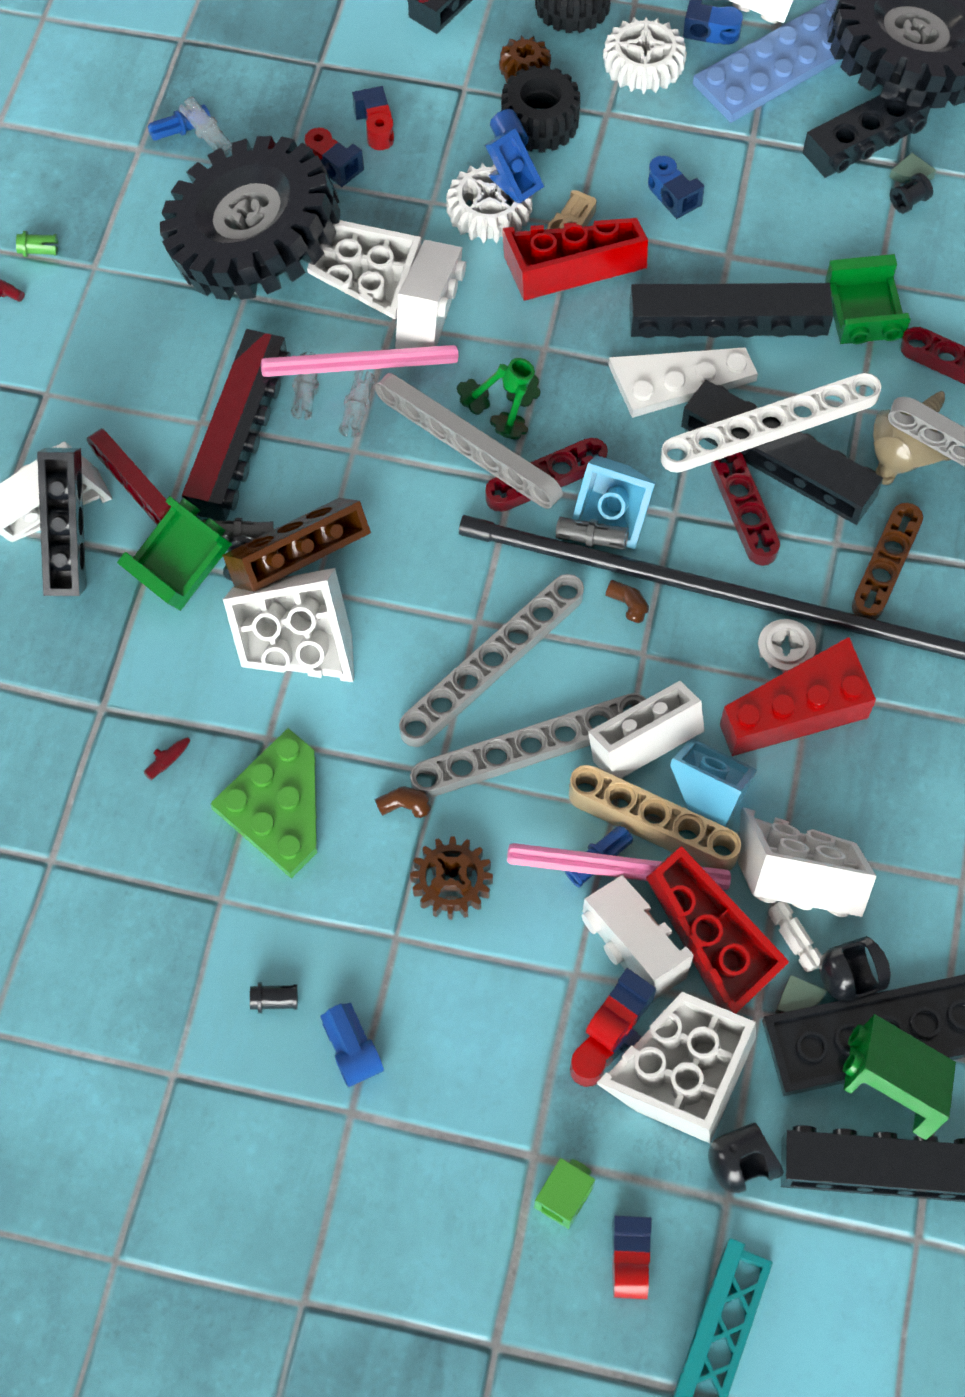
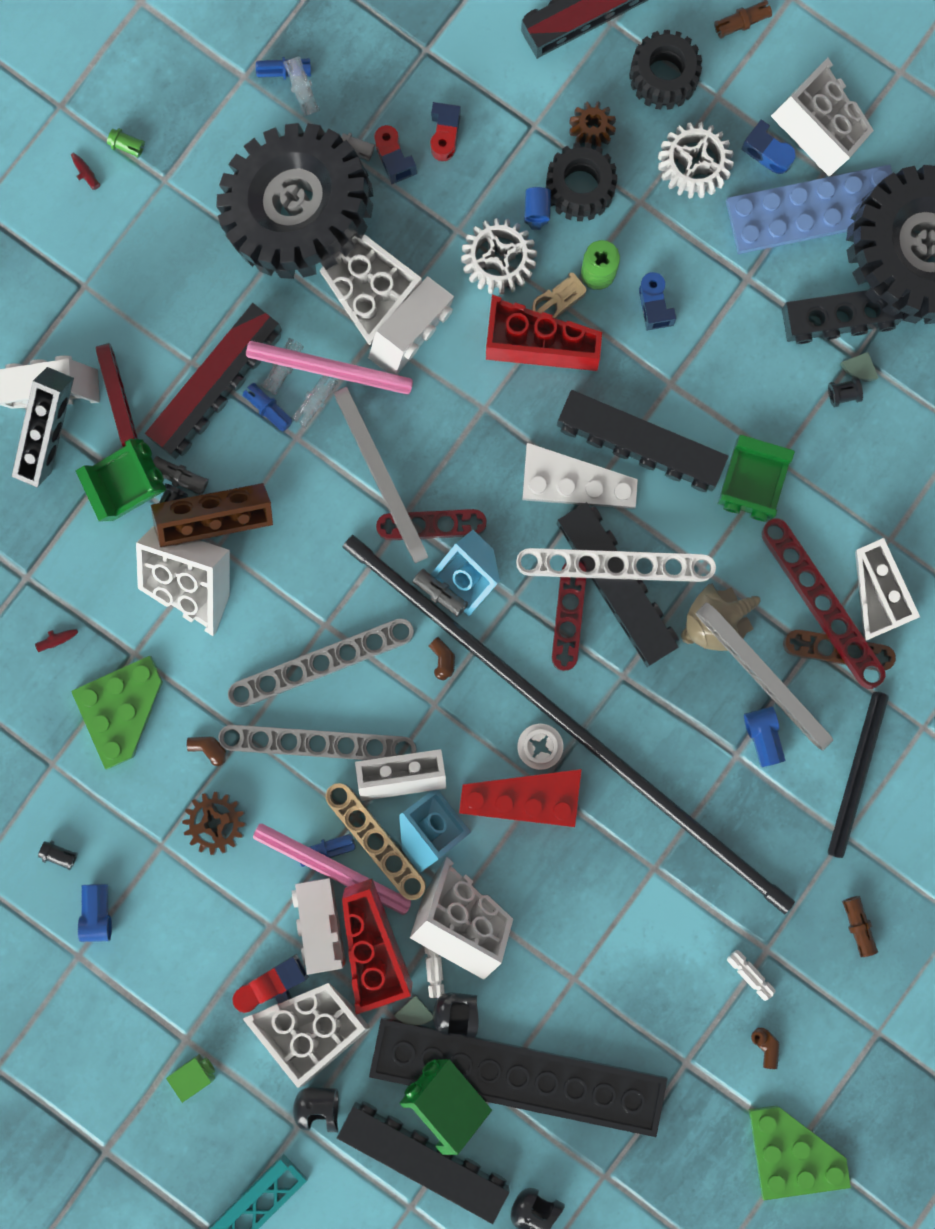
camera: 25 degrees right, 20 degrees up
(308, 428) = (268, 407): none -> blue axle
(514, 167) = (524, 244): blue slope -> none
(521, 390) = (439, 443): plant -> none
(600, 165) = (600, 265): none -> bright green piece
(631, 1256) = (215, 1137): leg -> none
(885, 560) = (649, 707): reddish brown beam -> none

